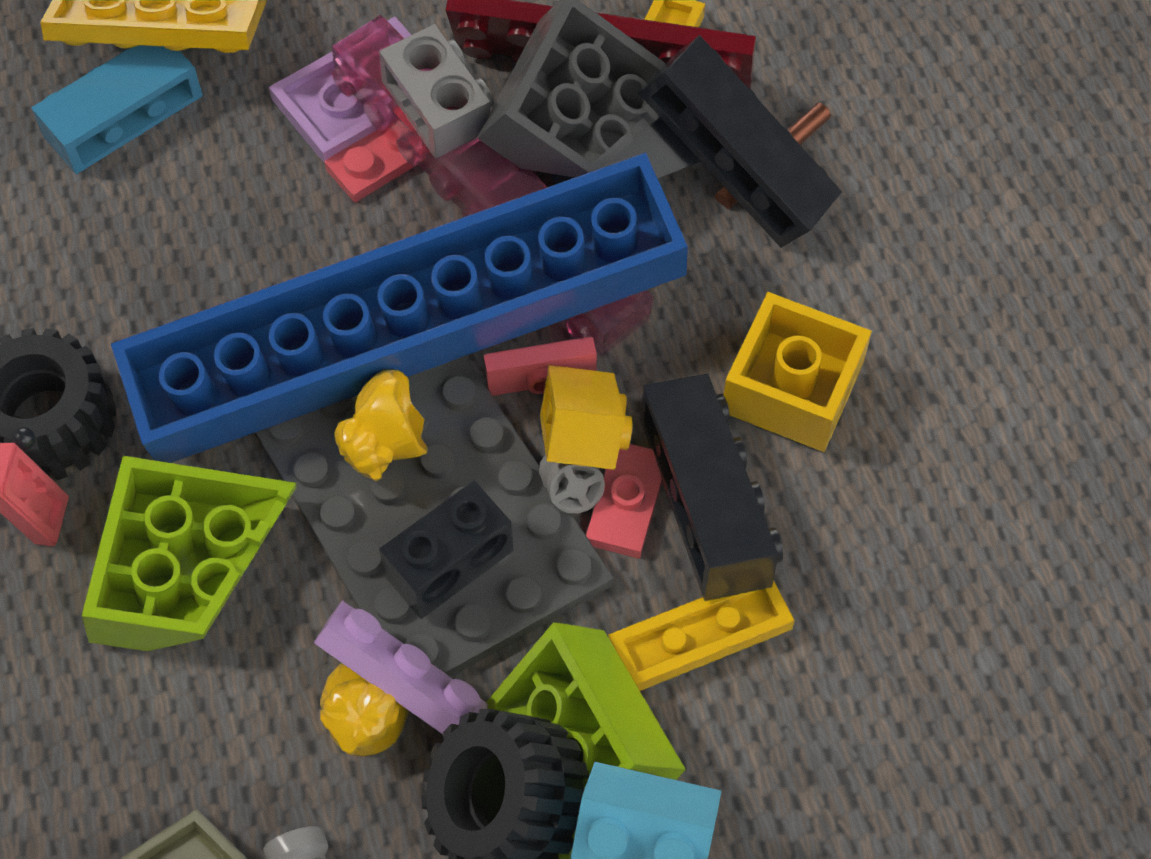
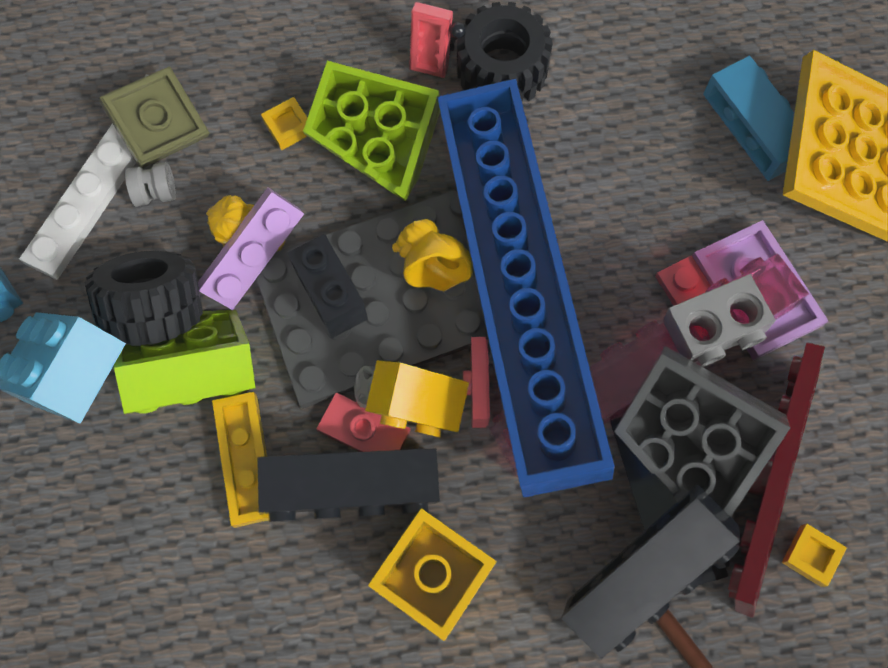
camera: 100 degrees right, 10 degrees up
(172, 690) = (286, 123): none -> yellow plate

